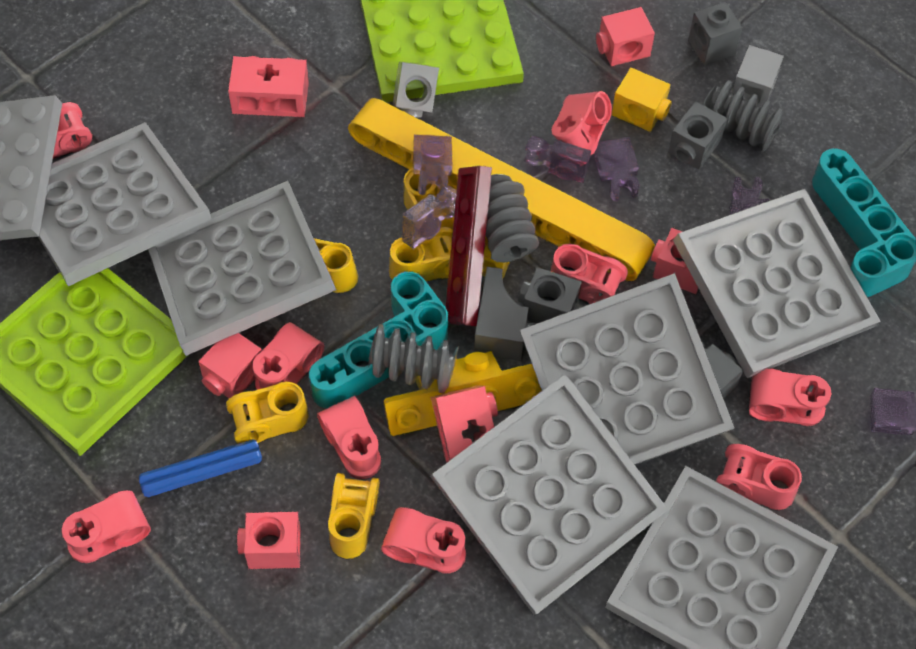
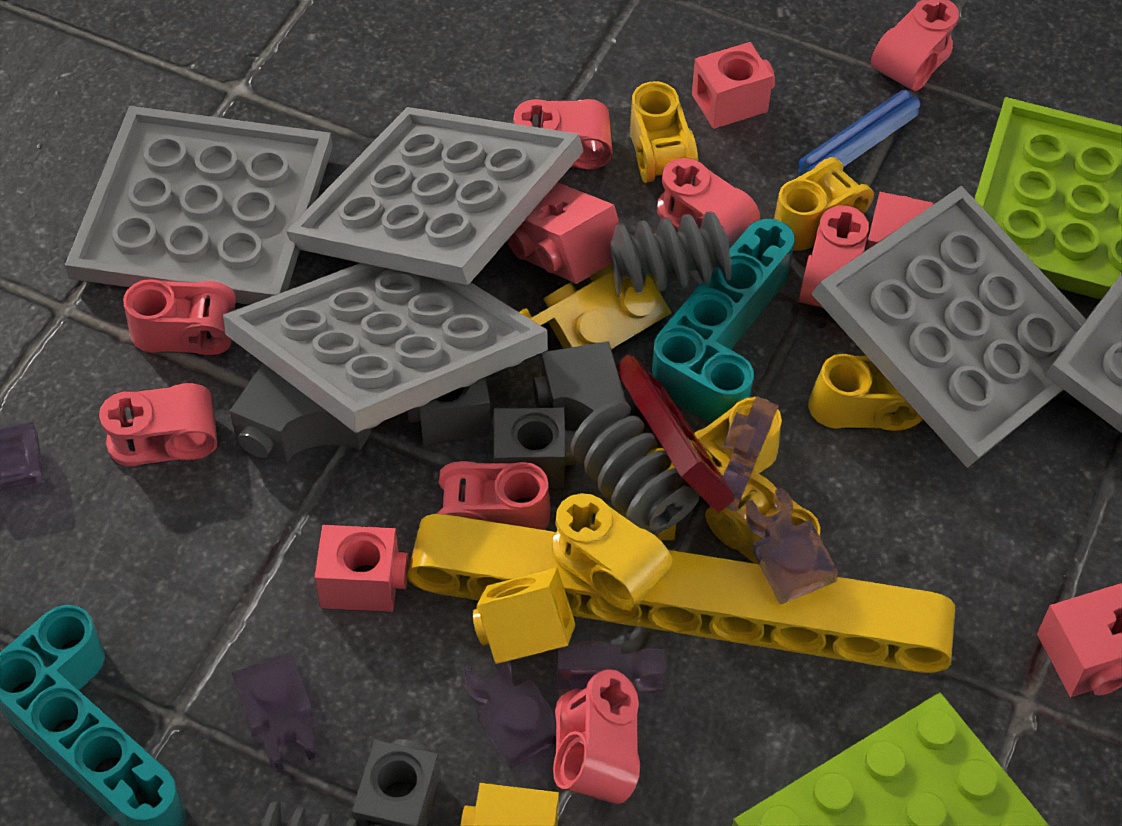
camera: 160 degrees right, 5 degrees down
(408, 72) = (890, 694): light grey brick -> none
(543, 188) = (611, 554): none -> yellow piece
(590, 171) = (524, 616): none -> yellow brick
(775, 282) = (209, 558): light grey plate -> none

